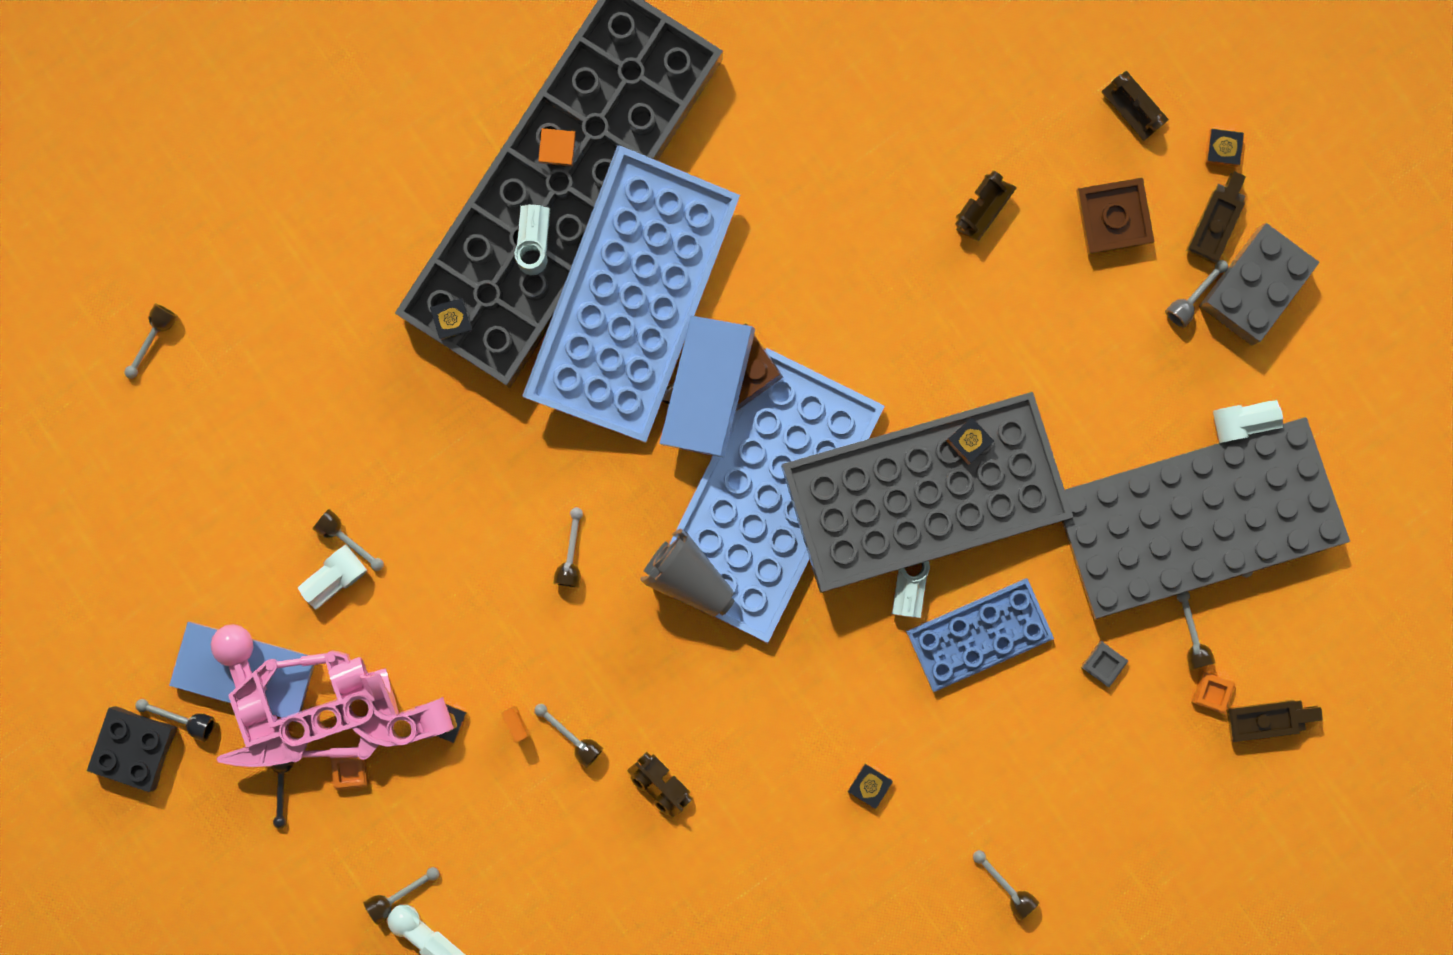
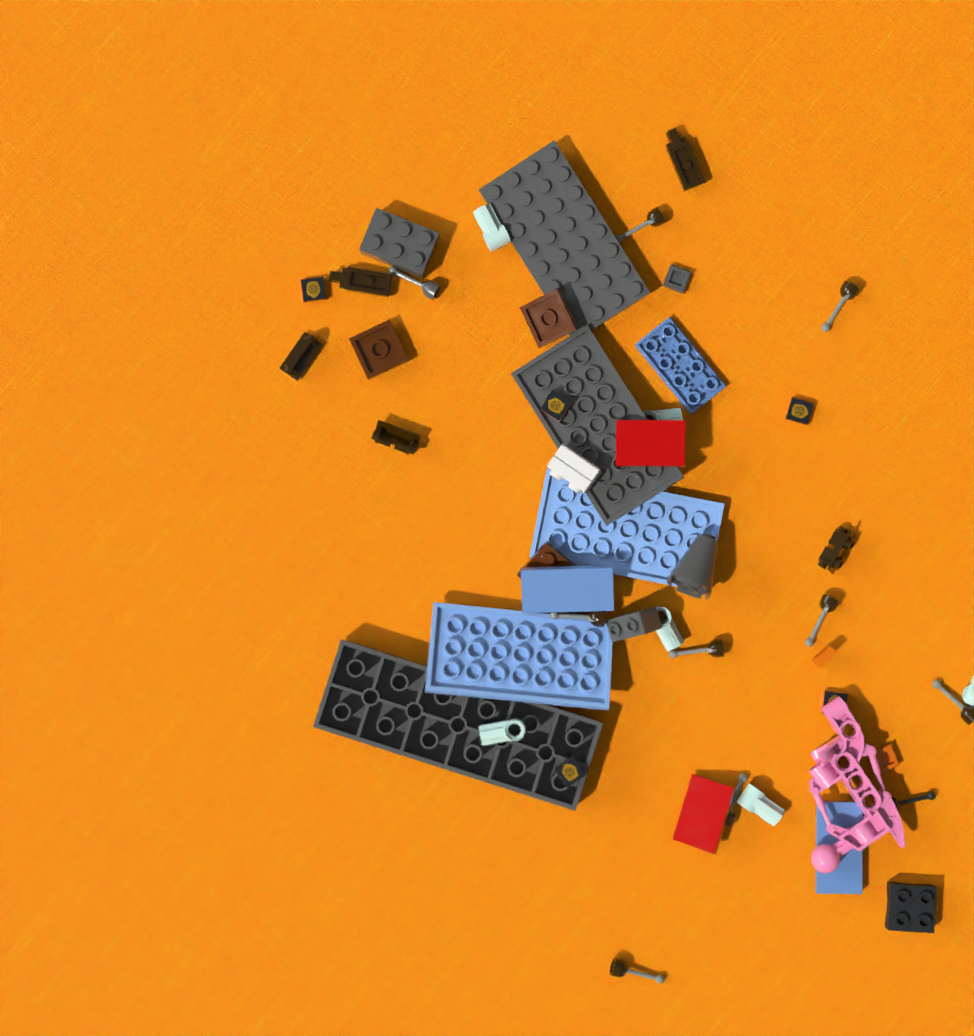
camera: 105 degrees left, 0 degrees up
(198, 725) = (882, 867): hinge -> none
(341, 494) = (704, 814): none -> tile
(557, 147) = (435, 732): orange tile -> none
(612, 512) = (669, 633): none -> light aqua piece
(632, 466) = (633, 624): none -> dark grey brick
(655, 416) = (596, 618): none -> hinge
(874, 439) = (574, 469): none -> white brick
(881, 557) = (650, 443): none -> red tile
(1097, 466) = (549, 317): none -> reddish brown plate
(1213, 692) = (675, 203): orange tile -> none

